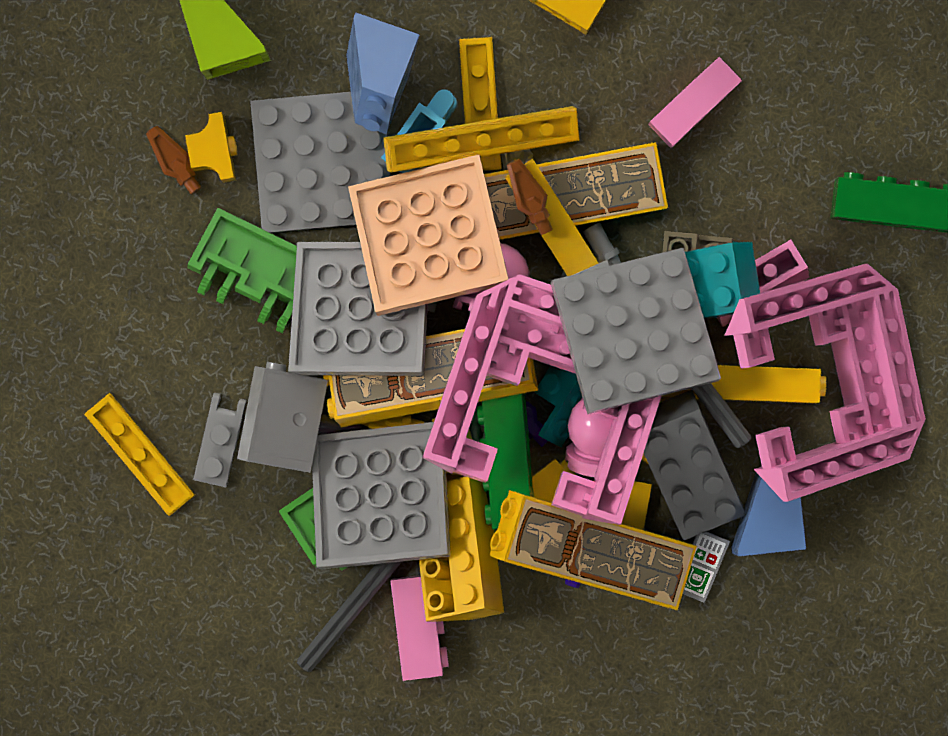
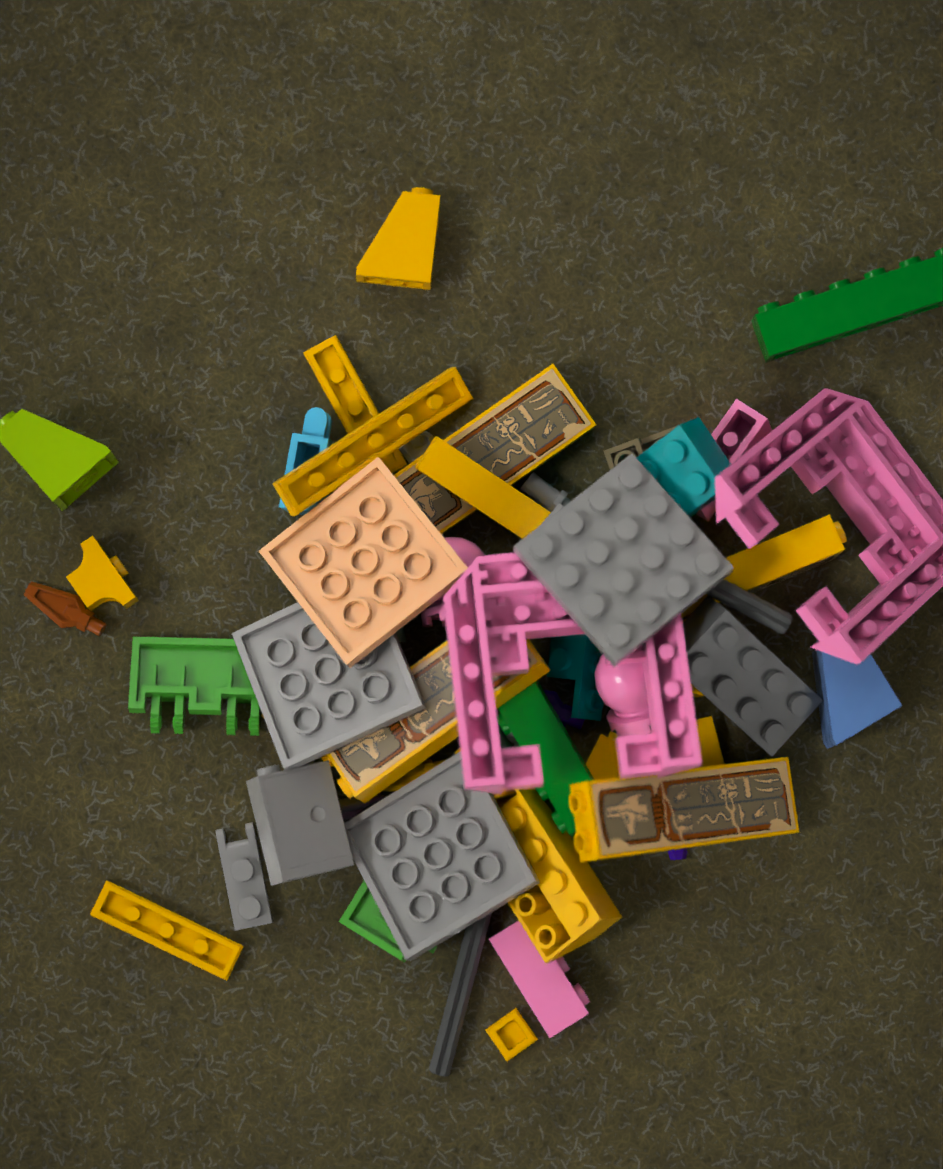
camera: 30 degrees left, 5 degrees down
(309, 157) = (206, 538): light grey plate -> none
(374, 662) = (511, 1034): none -> yellow tile
(378, 69) = (234, 418): medium blue slope -> none
(529, 195) = (449, 474): dark orange piece -> none
(694, 102) = (573, 307): bright pink slope -> none
(705, 565) = (805, 773): tile -> none

